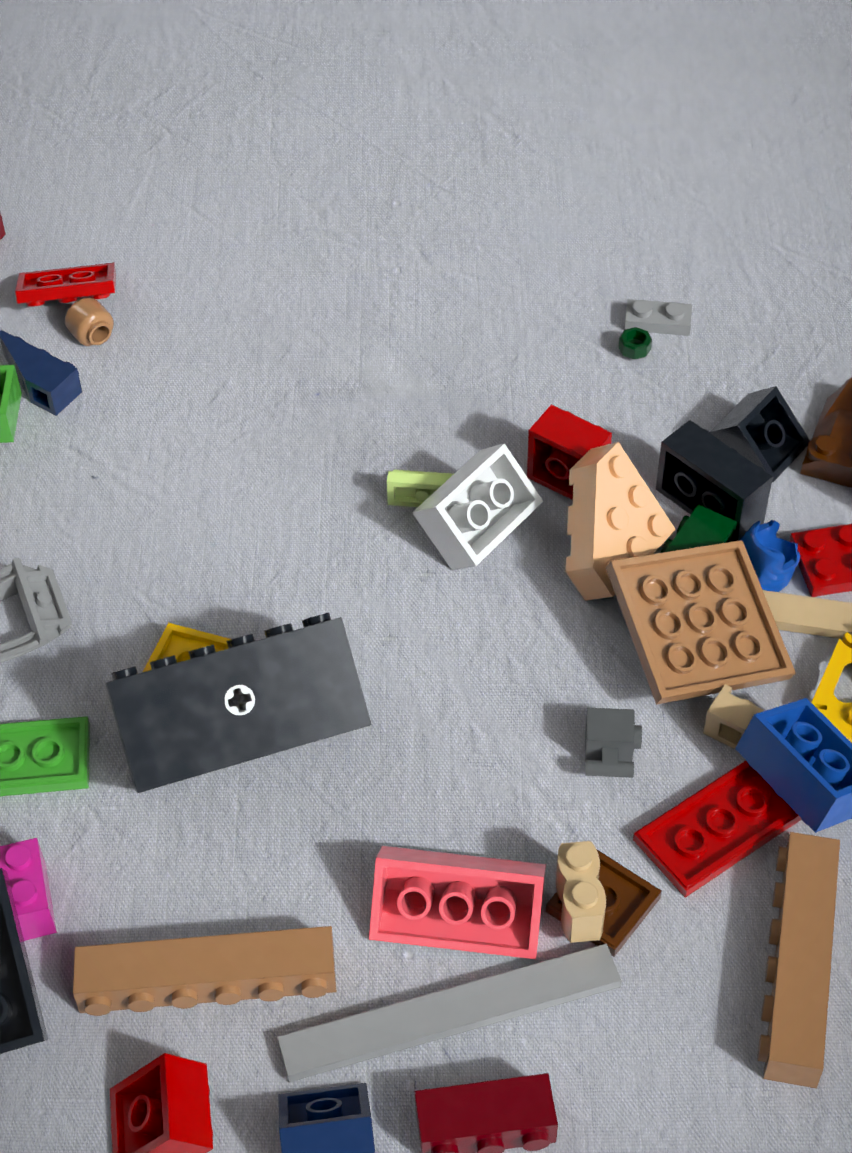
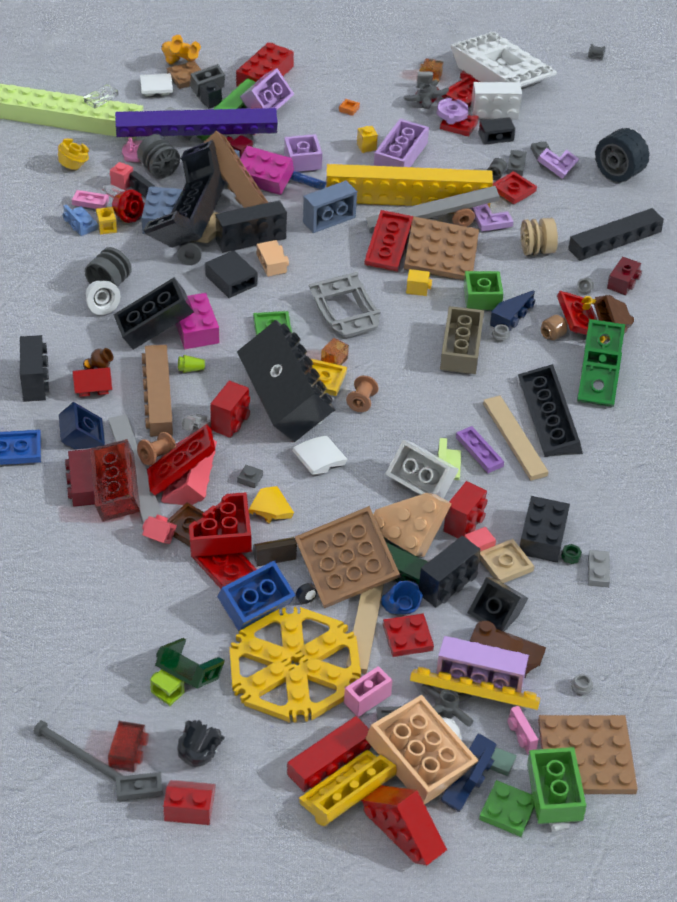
camera: 85 degrees right, 5 degrees down
(89, 238) = (609, 310): none -> reddish brown torso
(89, 395) = (501, 332): none -> light grey plate
(93, 1099) = (99, 358): none -> reddish brown animal
(116, 441) = (462, 340): none -> dark tan brick
(123, 642) = (335, 352): none -> clear orange brick
(123, 911) = (190, 364): none -> lime cone
(196, 264) = (601, 363): none -> green bracket
(249, 598) = (359, 399): none -> nougat hose
(295, 815) = (230, 409): none -> red brick
(302, 343) = (550, 412): none -> black arch
(333, 882) = (195, 422): none -> light grey hinge
(360, 395) = (515, 438): none -> tan tile
(395, 946) = (149, 451): none -> nougat hose
(396, 440) = (479, 449): none -> medium lavender plate
(413, 673) = (319, 455): none -> white slope
(463, 795) = (250, 476): none -> dark grey plate
(471, 892) = (181, 459): none -> red plate
(513, 1031) = (115, 480): none -> clear red brick
(545, 757) = (271, 504): none -> yellow slope
(580, 891) = (185, 504): tan brick -> none
(589, 366) = (544, 528): none -> black brick
(611, 742) = (279, 526): dark grey brick -> none
(635, 444) = (481, 538): none -> coral brick
(639, 819) = (223, 528): none -> red brick
(642, 945) = (159, 529): none -> coral brick
(655, 417) = (506, 561): none -> tan plate
(669, 746) = (275, 550): none -> dark brown brick
(729, 717) = (294, 573): tan brick -> none
(770, 694) = (306, 593): none -> black tile
(801, 961) = (152, 591): medium nougat brick -> none

